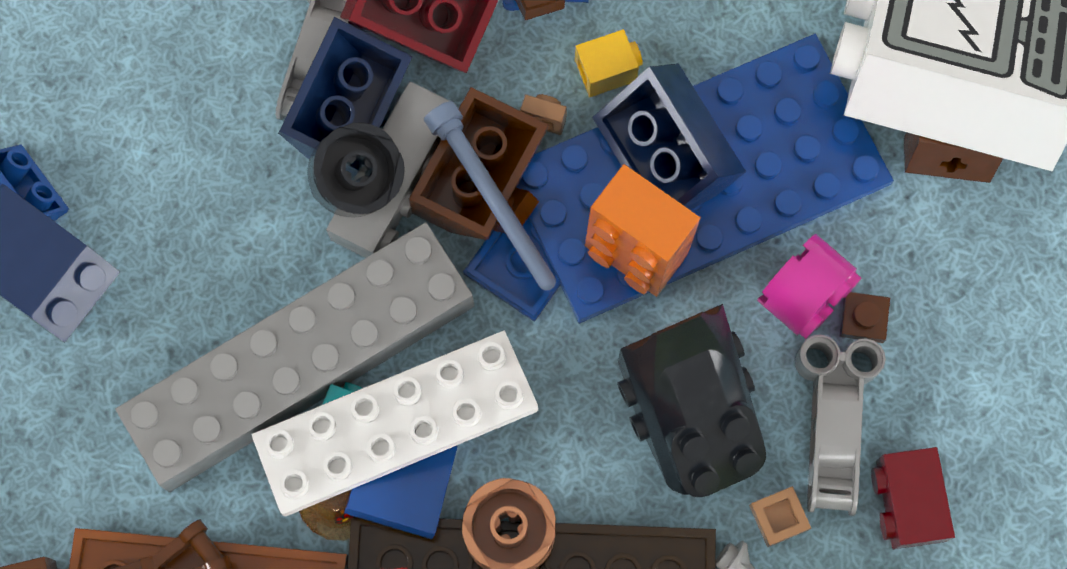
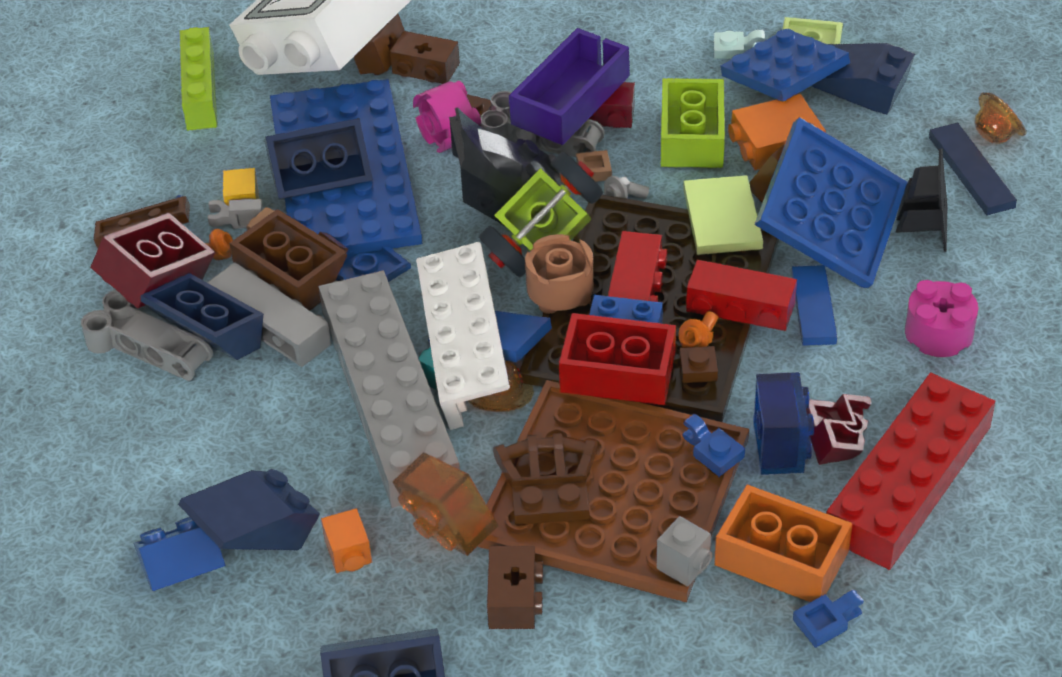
camera: 75 degrees left, 30 degrees down
(45, 384) = (346, 541): none -> orange brick
(82, 487) = (444, 504): none -> clear orange brick
(376, 157) = (267, 297): black brick -> none
(447, 124) = (254, 251): sand blue piece -> none
(508, 65) = (219, 242): none -> orange plate
(568, 81) = (237, 213): none -> light grey plate
(606, 475) = (542, 210): none -> brick
(639, 231) = (380, 157): orange brick -> none
(887, 450) = (569, 86): none -> dark purple piece
(960, 196) = (424, 57): none -> reddish brown brick

